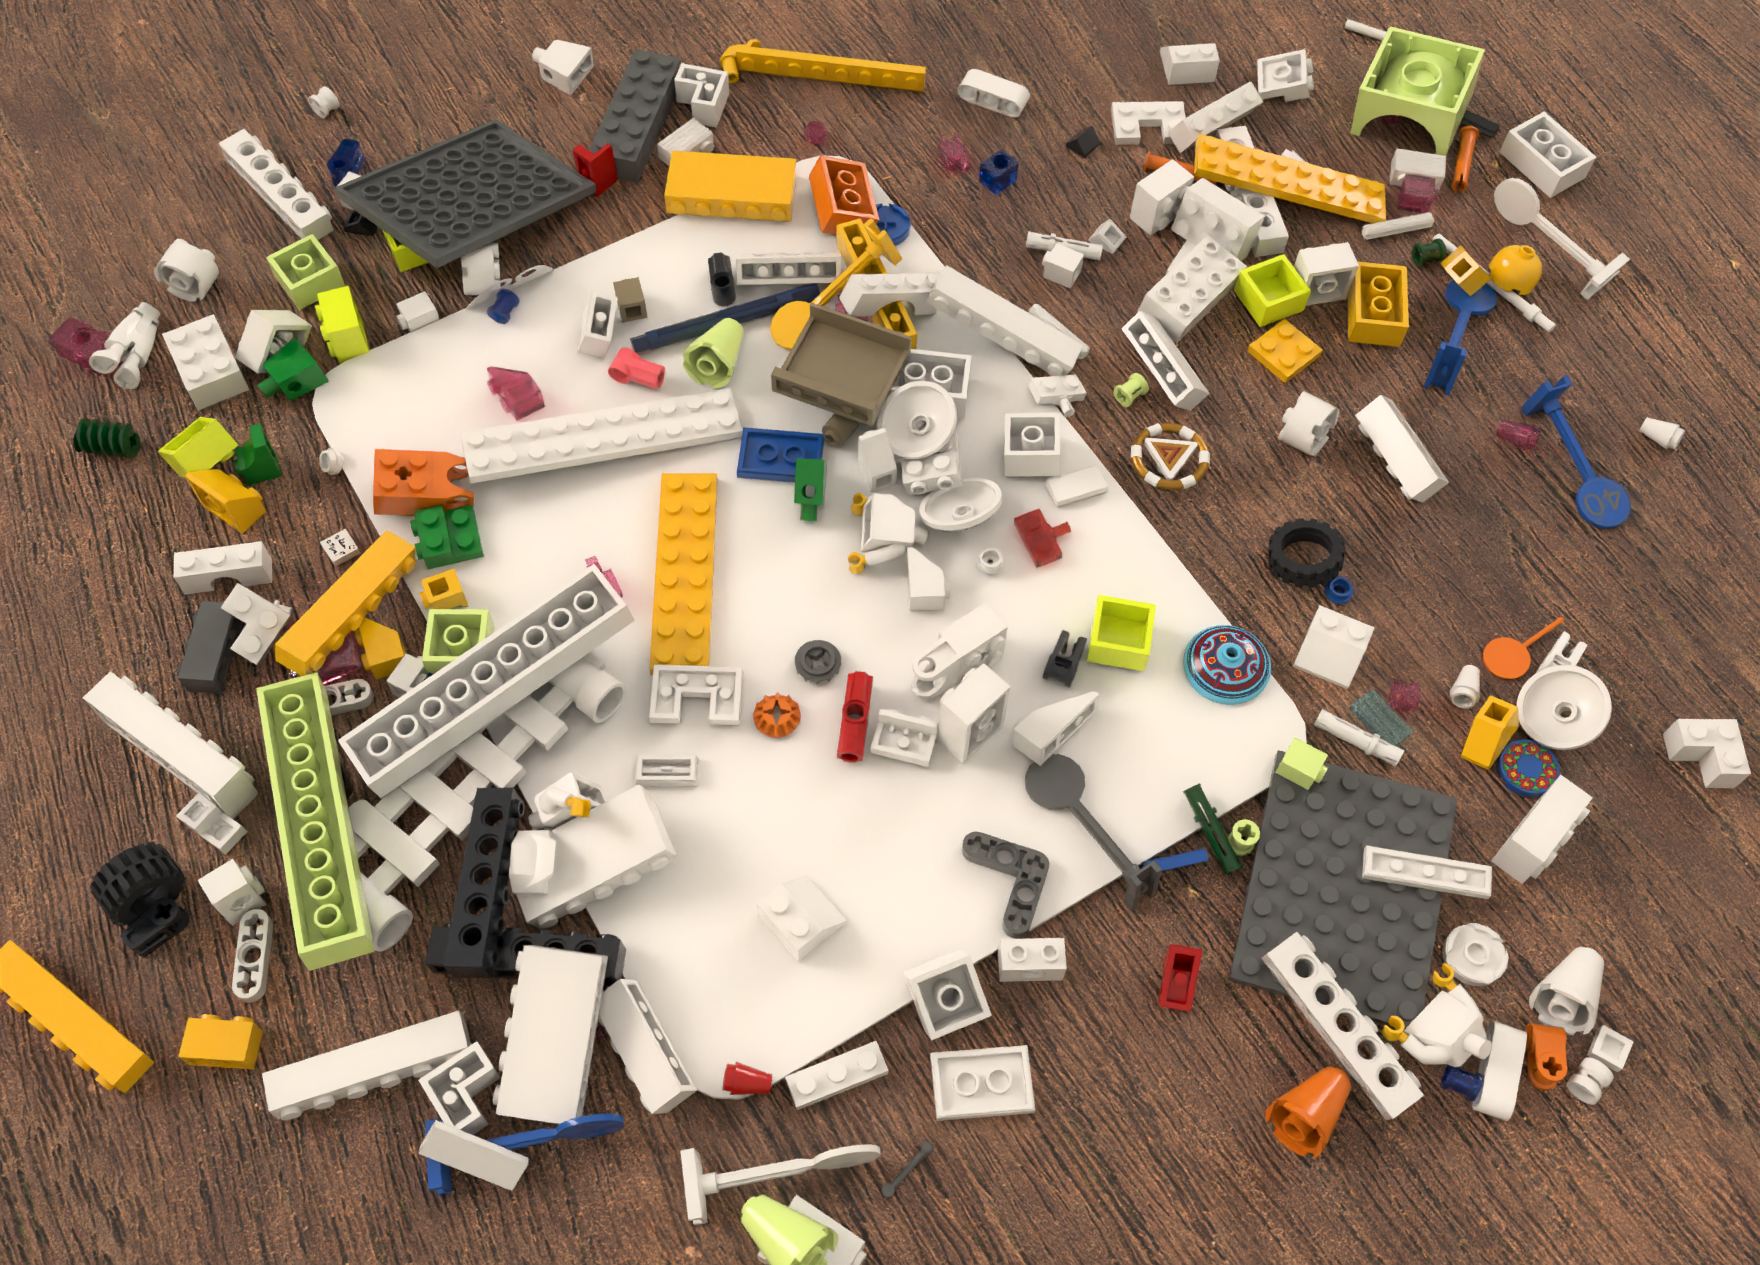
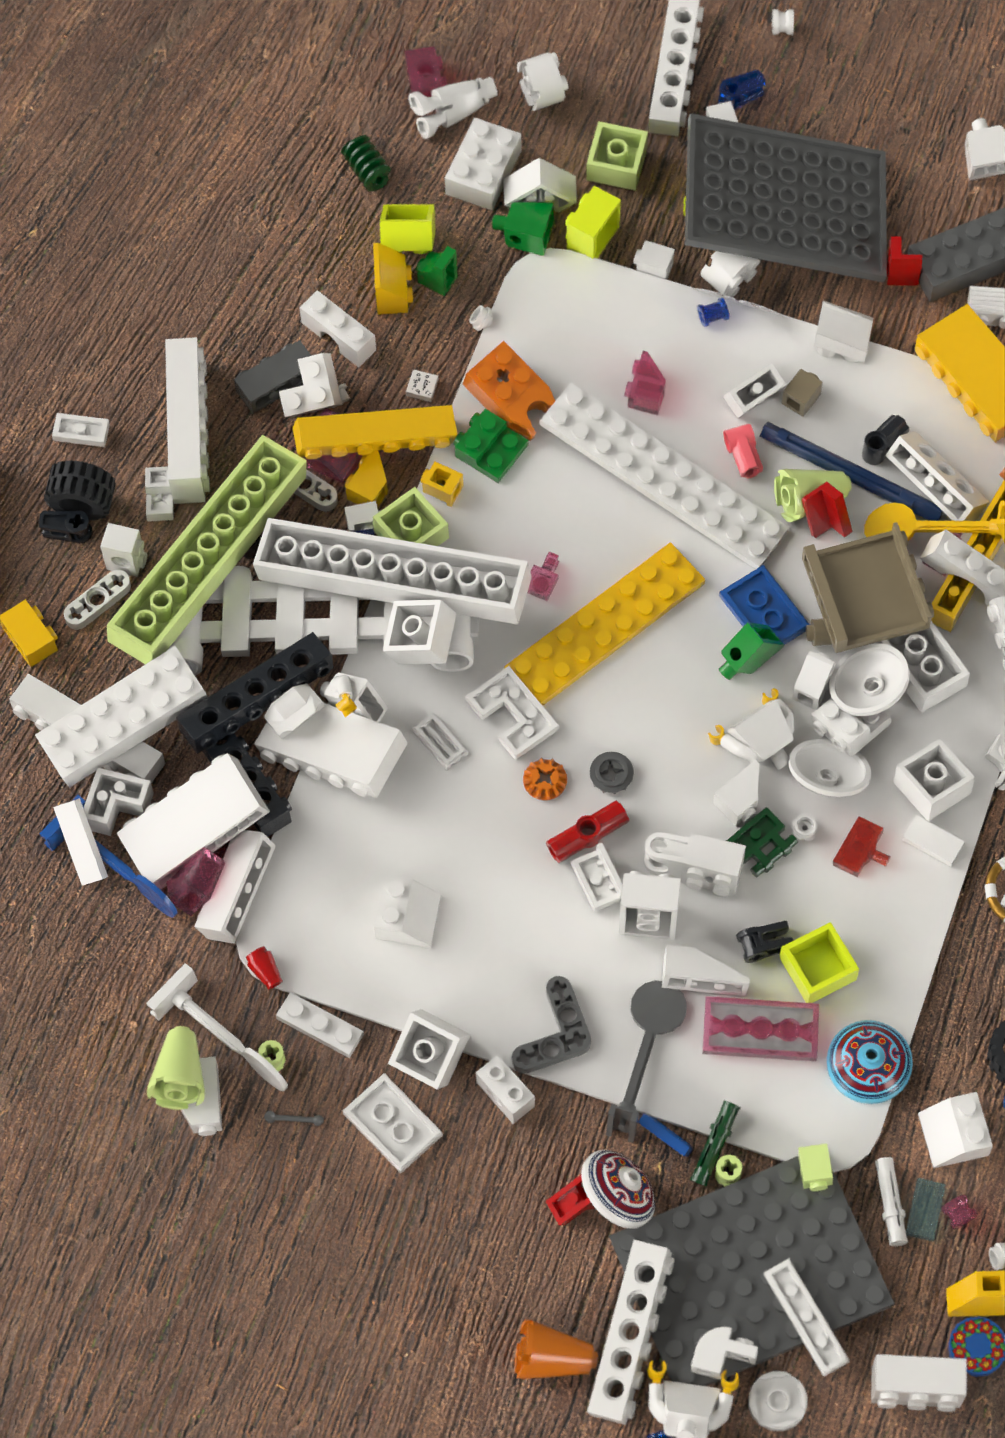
camera: 55 degrees right, 5 degrees up
(81, 842) = (80, 430): none -> white plate
(392, 1017) = (121, 716): none -> white brick
(566, 699) = (419, 632): none -> white brick
(608, 243) = (843, 333): none -> white slope
(610, 1078) = (195, 881): none -> clear pink slope
(748, 348) = (826, 510): none -> red panel
(829, 1132) = (277, 1050): none -> yellowish green bush
(968, 592) = (759, 833): none -> dark green plate
(1138, 719) = (760, 1028): none -> clear pink piece
(1201, 933) = (618, 1188): none -> dish
(1409, 966) = (715, 1347): none -> white brick

